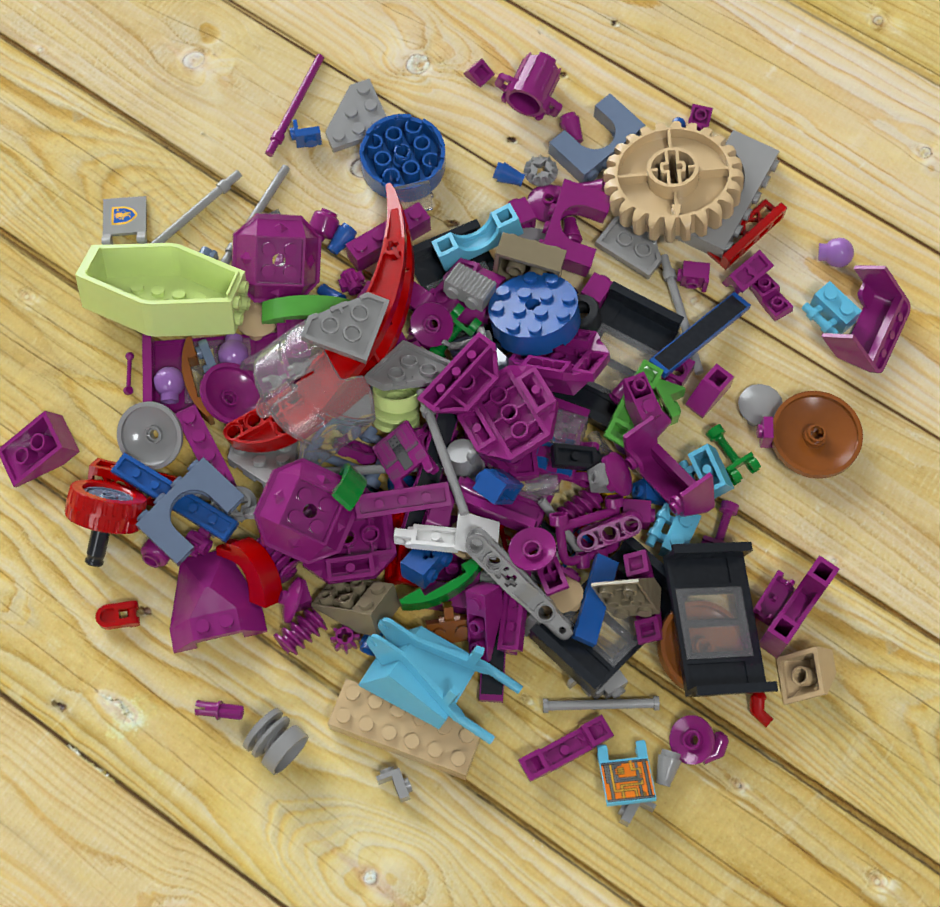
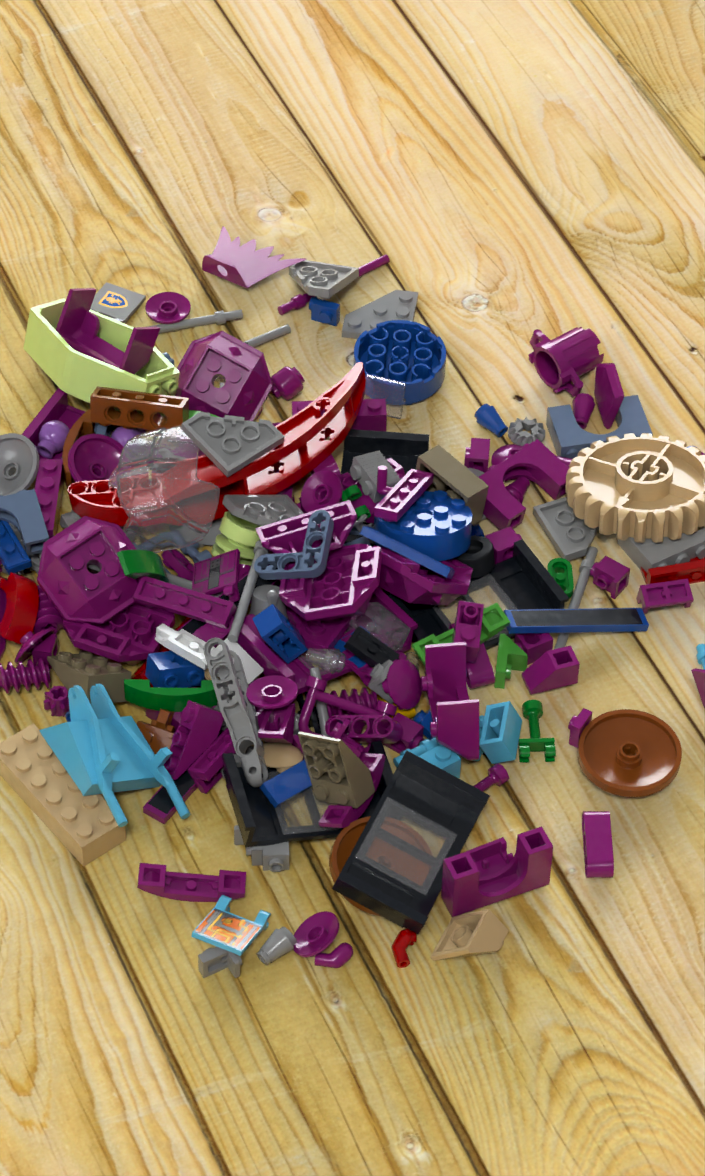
camera: 30 degrees right, 20 degrees down
(128, 390) = (36, 408): magenta hinge -> none
(151, 283) = (80, 331): none -> magenta windscreen
(174, 193) = (168, 307): none -> magenta dish
(206, 123) = (242, 263): none -> piece
(235, 326) = (150, 404): none -> dark orange brick
(286, 106) = (322, 278): none -> light grey plate
(342, 236) = (285, 404): blue cone -> none
(402, 785) = (19, 826): light grey bracket -> none
(453, 247) = (406, 454): medium azure arch -> none
(479, 73) = (524, 331): magenta slope -> none
(480, 410) = (301, 559): none -> sand blue beam
(509, 298) = (402, 495): none -> magenta plate
(548, 351) = (408, 552): none -> blue tile
(586, 101) = (608, 392): none -> magenta tile
(601, 704) = (303, 891): light grey bar -> none
(610, 557) = (338, 732): none -> magenta bracket
(660, 296) = (562, 573): none -> green plate
(758, 402) = (595, 701): light grey dish -> none
(770, 298) = (675, 629): magenta slope -> none
(842, 529) = (597, 844): none -> magenta beam

